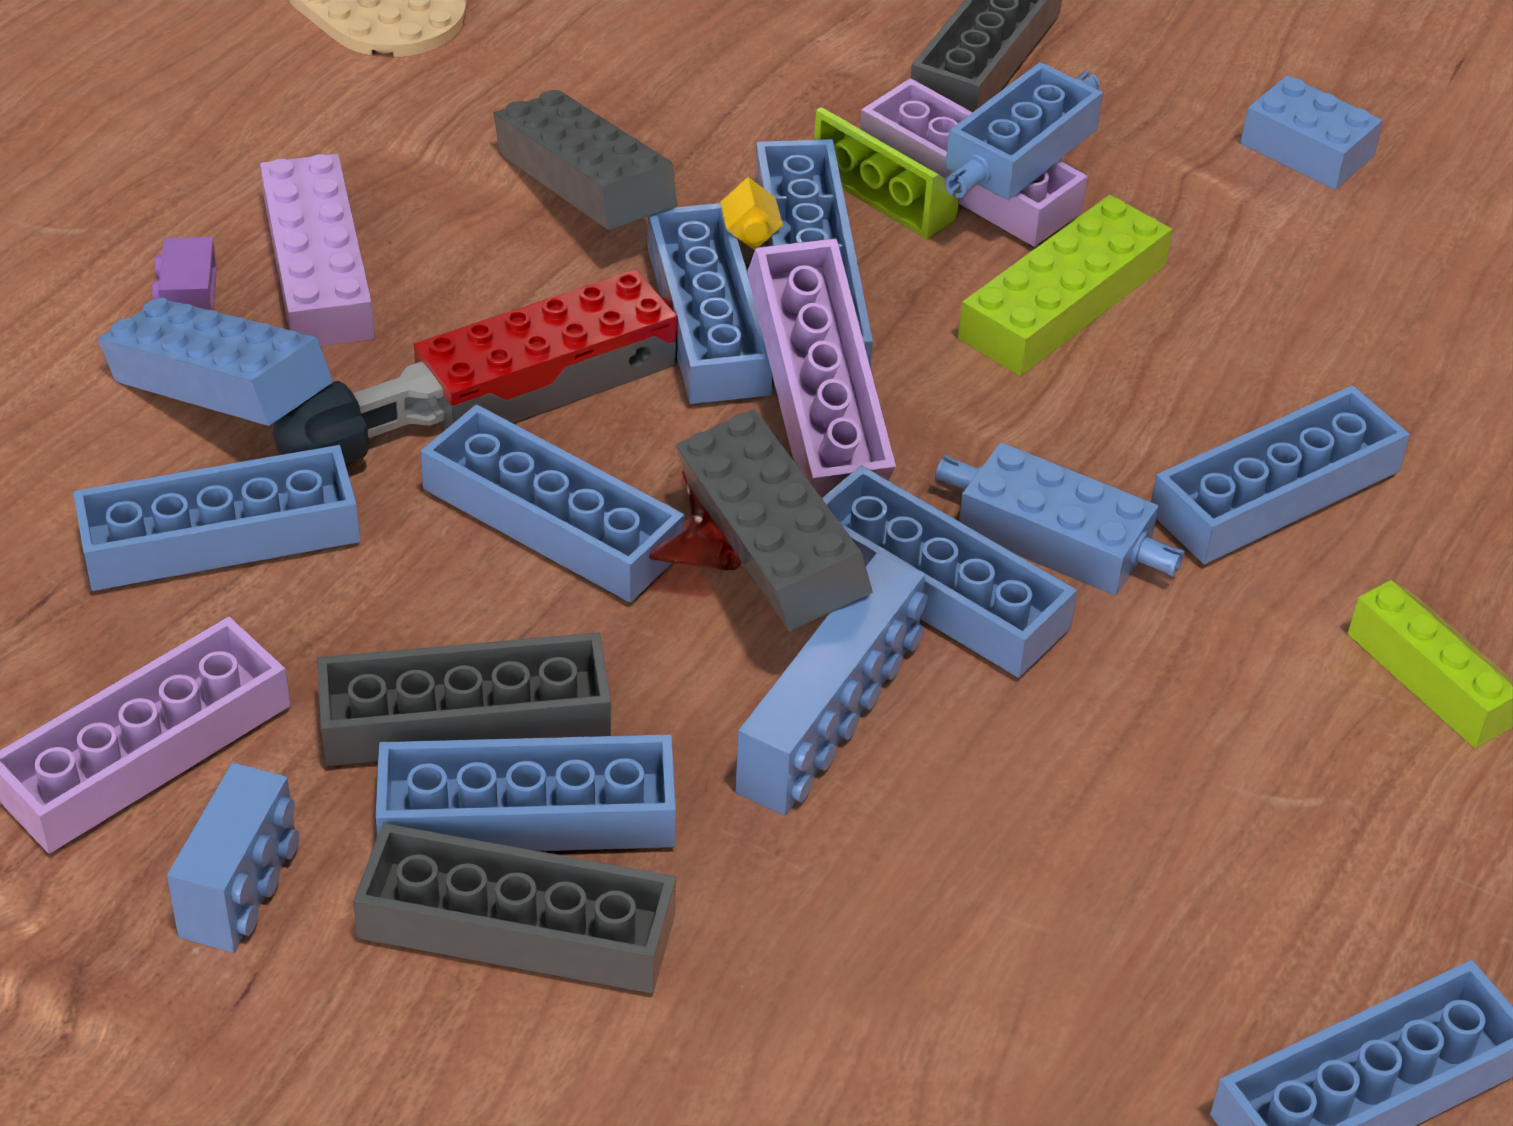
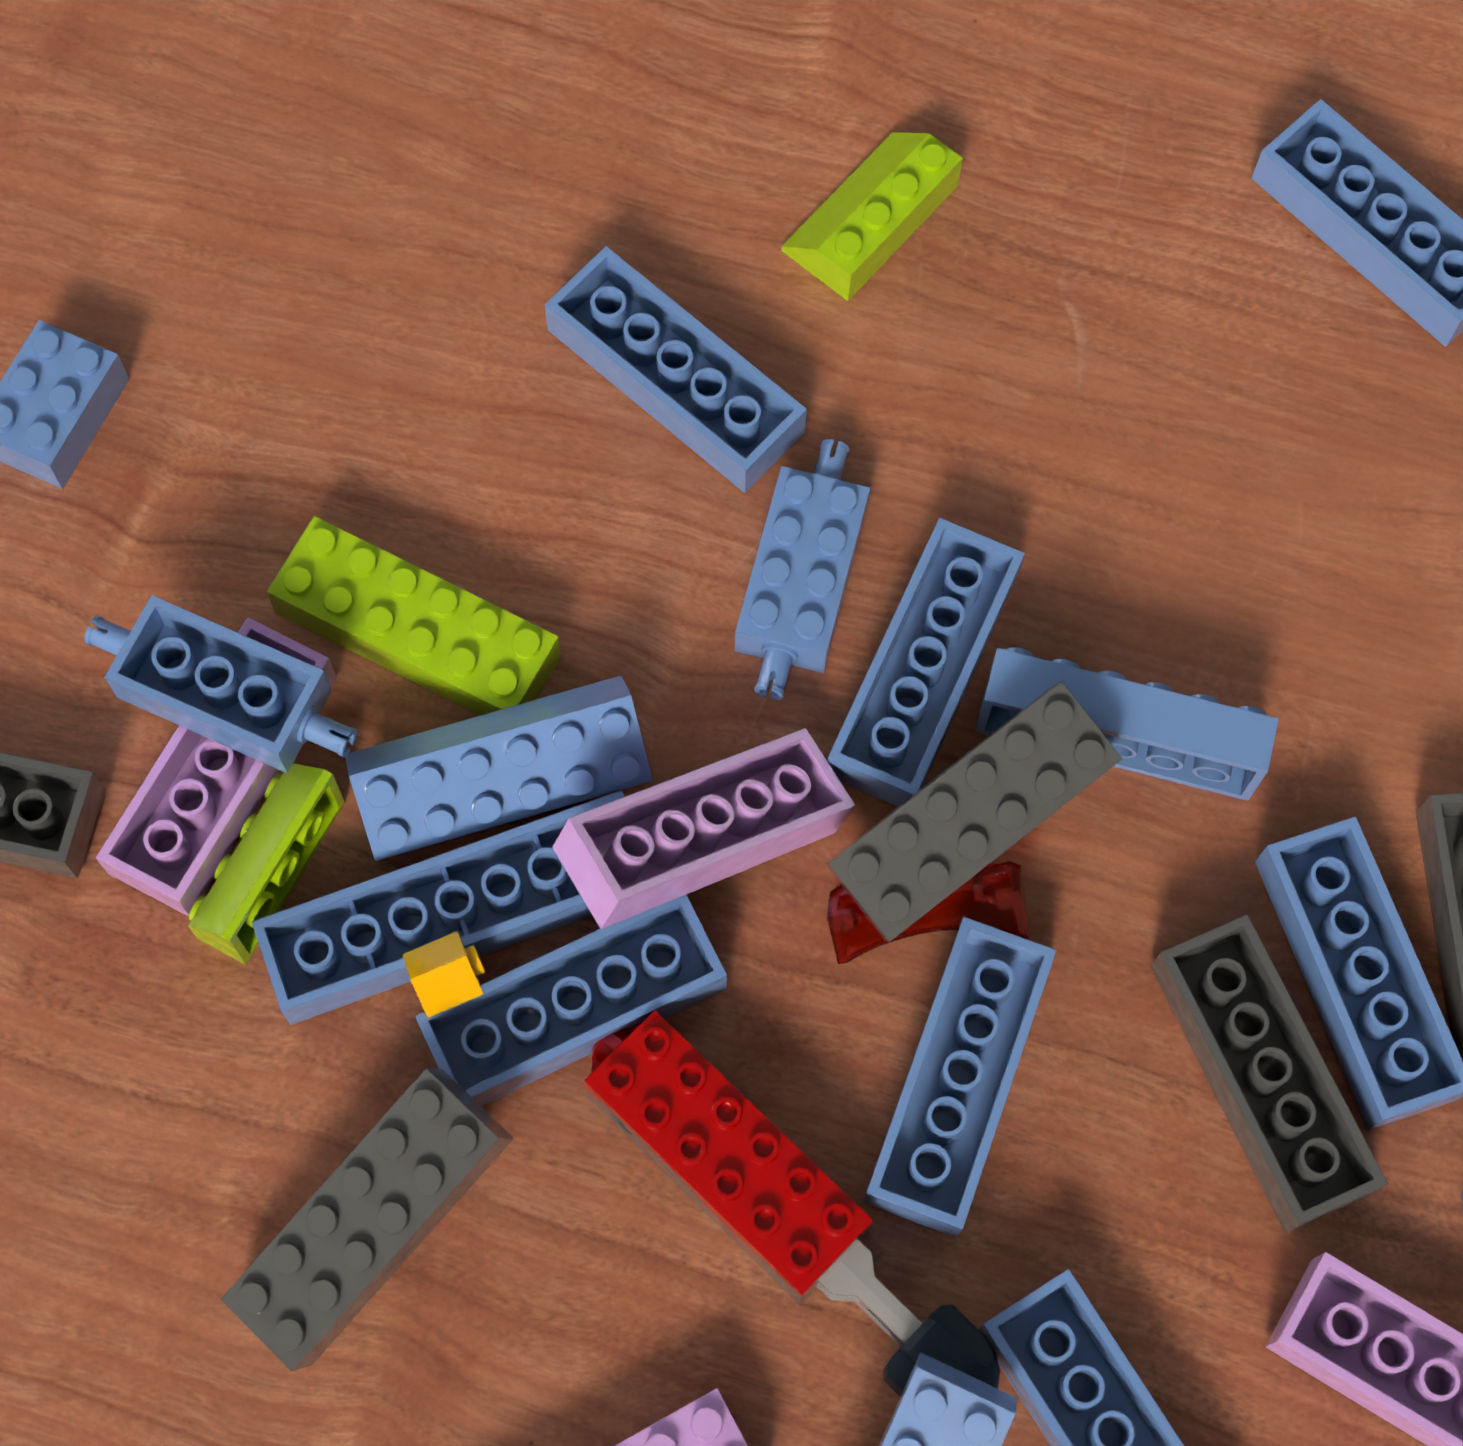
camera: 105 degrees left, 25 degrees up
(919, 292) = (498, 767): none -> medium blue brick

